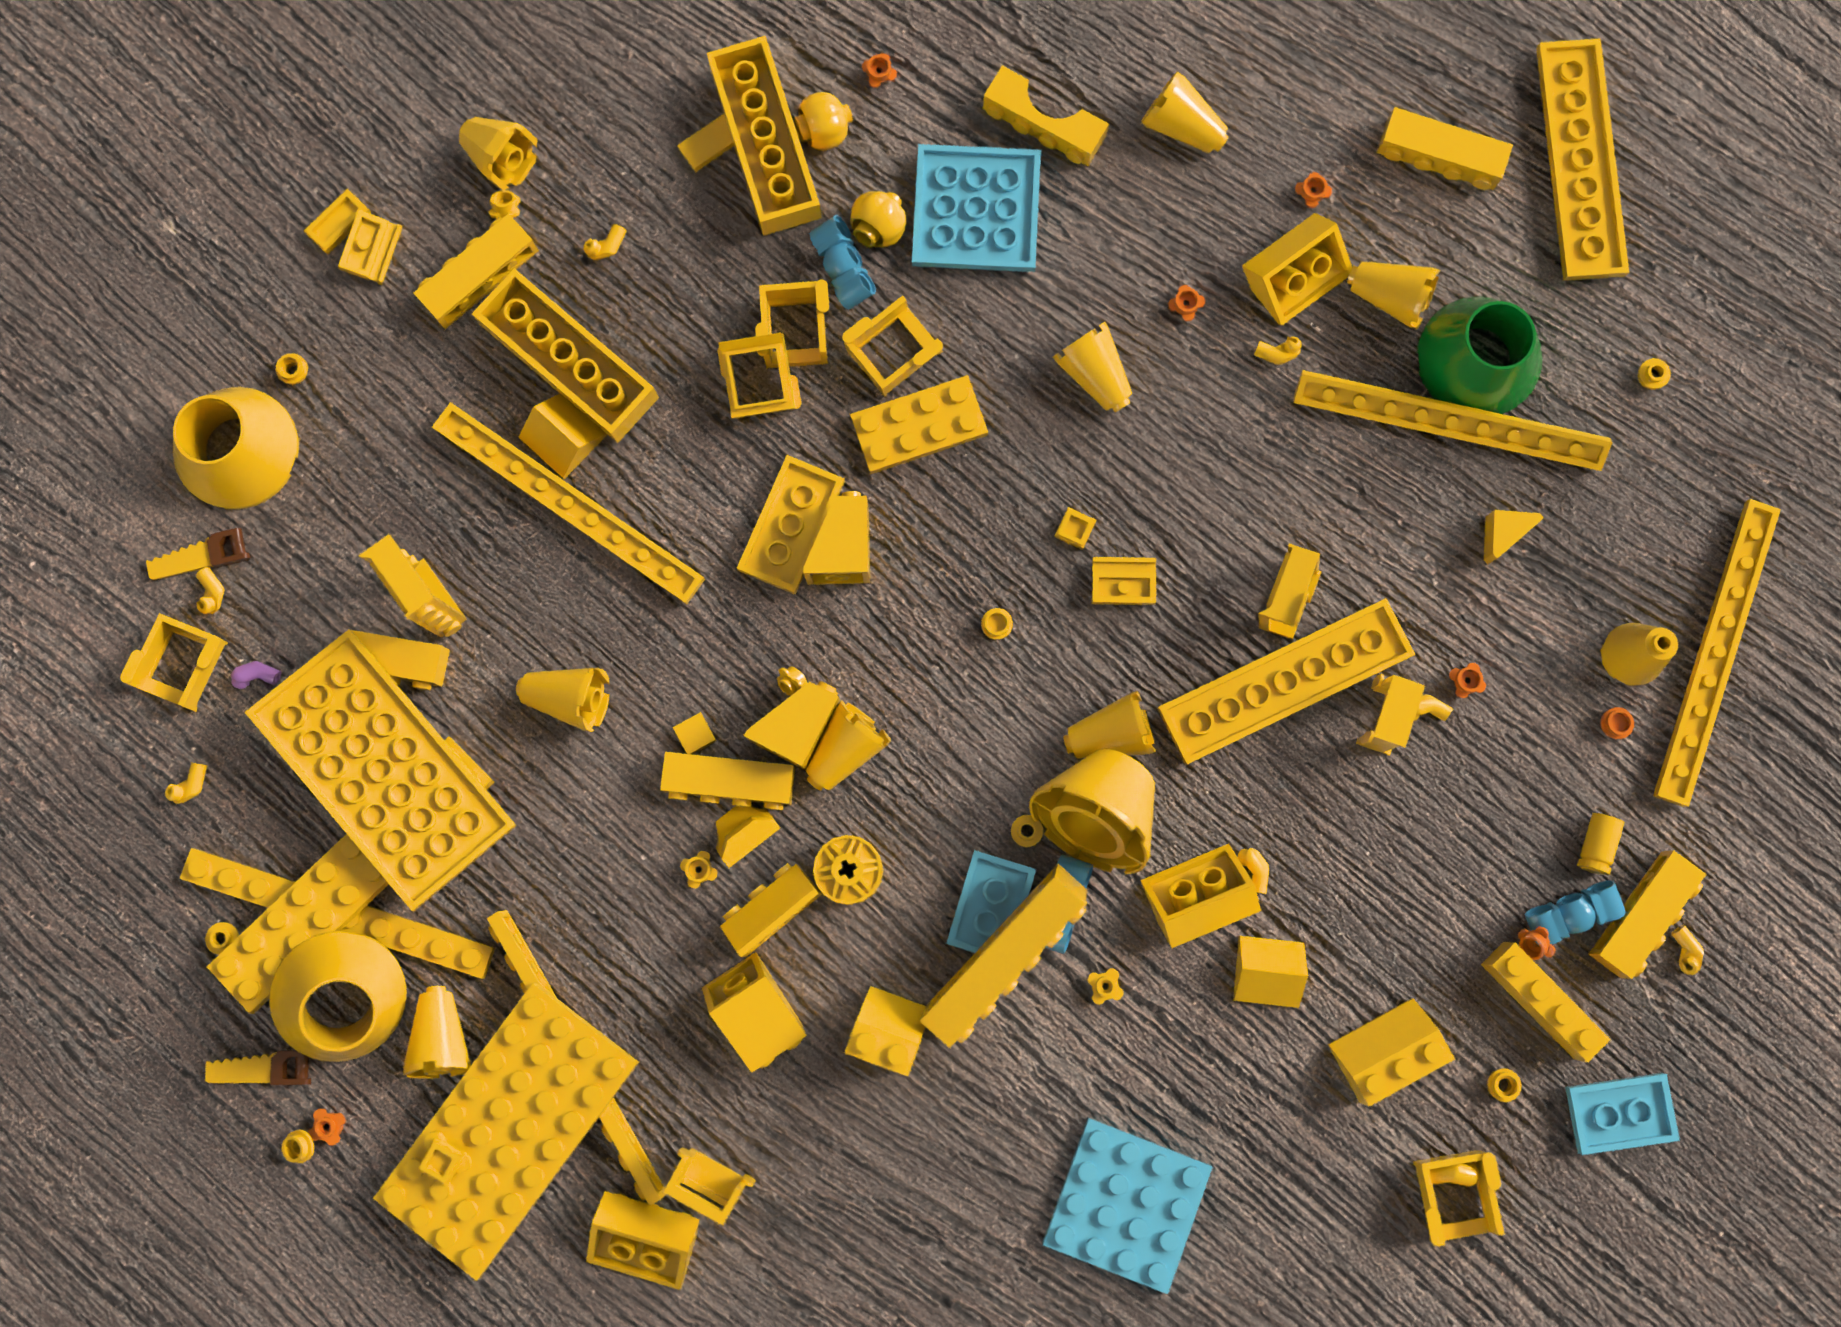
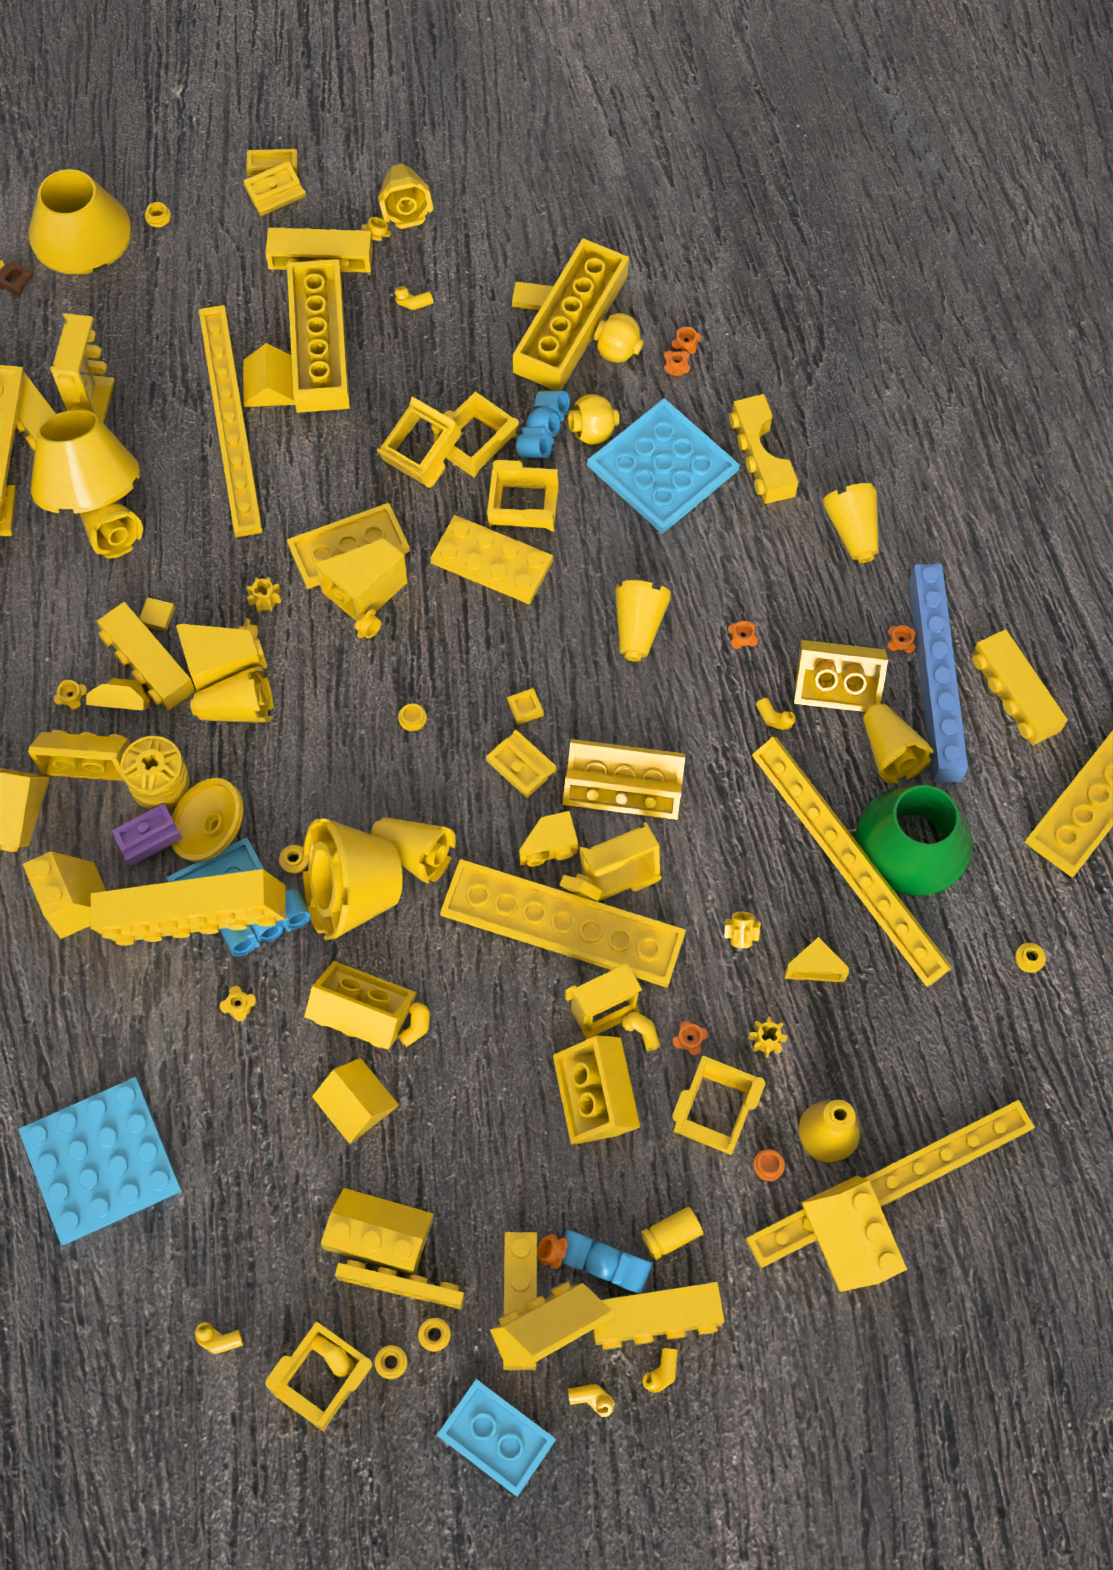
camera: 40 degrees right, 15 degrees down
(503, 672) = (80, 464): none -> yellow cone
(764, 625) = (257, 591): none -> yellow gear
(880, 579) = (367, 624): none -> yellow plate
(892, 108) = (674, 368): none -> orange plate
(892, 924) = (146, 834): none -> medium lavender plate
(918, 877) = (207, 819): none -> yellow dish
(1209, 622) = (549, 839): none -> yellow slope
(1216, 517) = (624, 779): none -> yellow slope
(1275, 639) = (581, 886): none -> yellow plate
(1354, 1247) = (215, 1341): none -> yellow arm
(1370, 192) = (937, 673): none -> medium blue brick
(1428, 557) = (742, 929): none -> yellow gear
(1442, 790) = (596, 1090): none -> yellow slope
(1485, 1051) = (414, 1287): none -> yellow plate
(1503, 1139) = (381, 1357): none -> yellow plate
(1521, 631) = (766, 1029): none -> yellow gear
(1563, 692) = (729, 1077): none -> yellow piece
(1605, 1004) = (549, 1324): none -> yellow slope
(1659, 1015) = (594, 1396): none -> yellow arm
(1735, 718) = (854, 1235): none -> yellow slope

